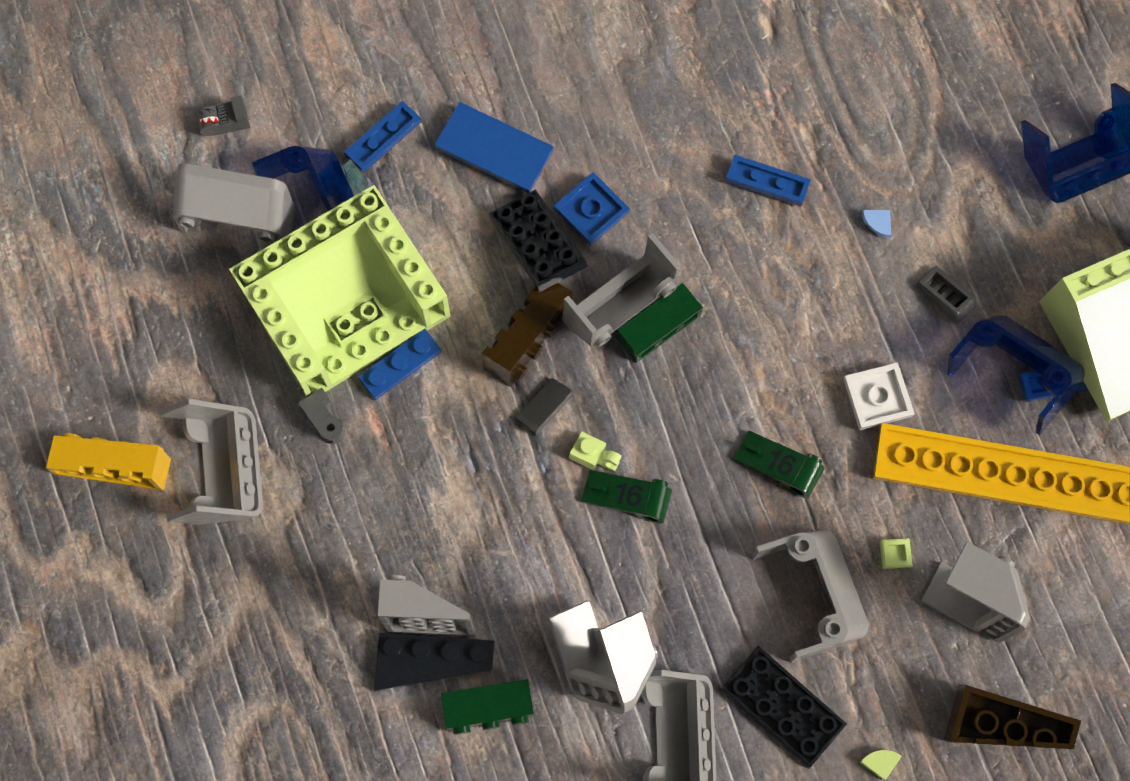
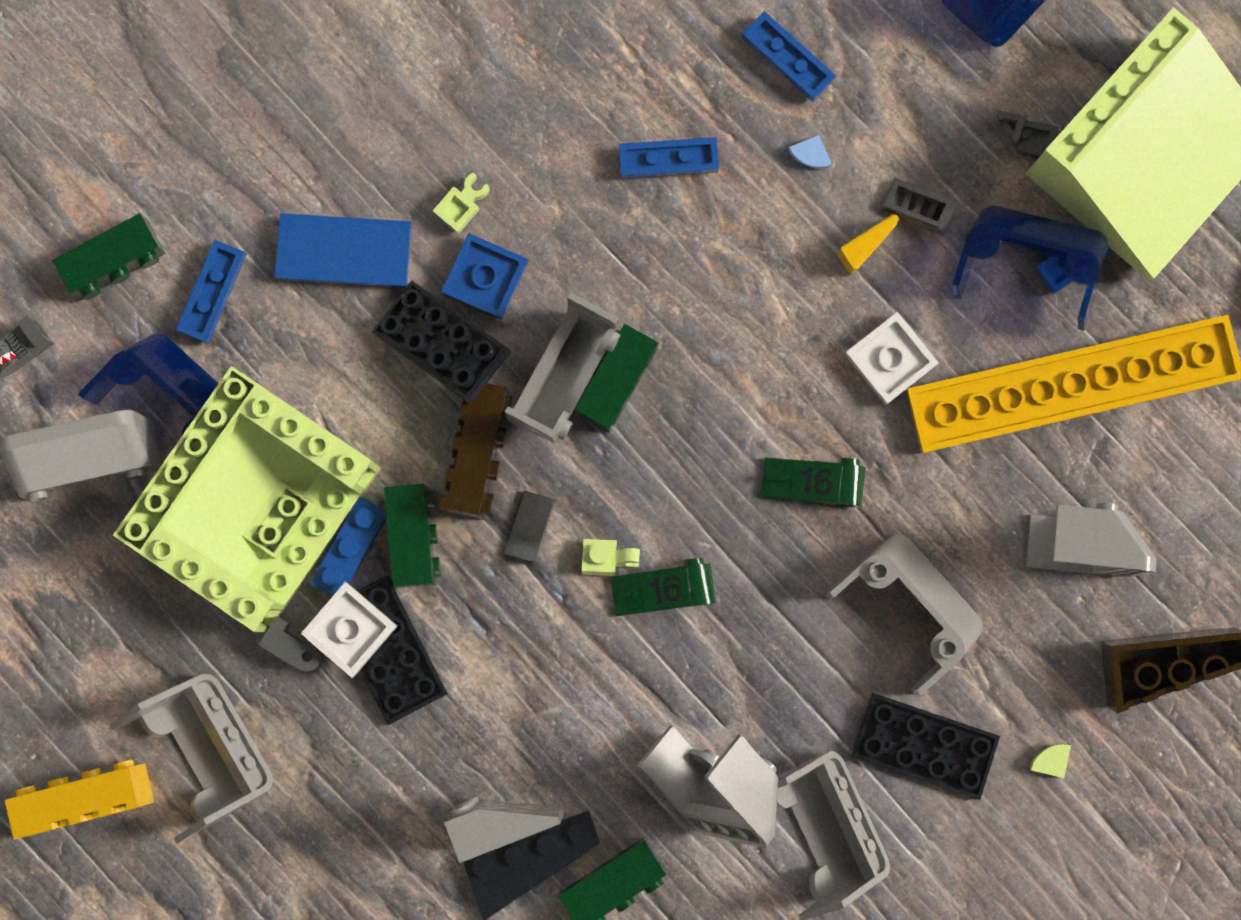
camera: 20 degrees left, 10 degrees up
(319, 82) = (109, 257): none -> dark green brick
(355, 176) = (202, 354): clear light blue tile -> none
(372, 420) = (349, 629): none -> white plate
(394, 452) = (401, 668): none -> black tile
(451, 373) = (411, 535): none -> dark green brick
(595, 152) = (459, 207): none -> yellowish green plate
(888, 304) = (859, 249): none -> yellow slope
(890, 145) = (788, 56): none -> blue plate
(896, 554) = (979, 527): yellowish green tile -> none
(1047, 272) = (1027, 136): none -> dark grey slope

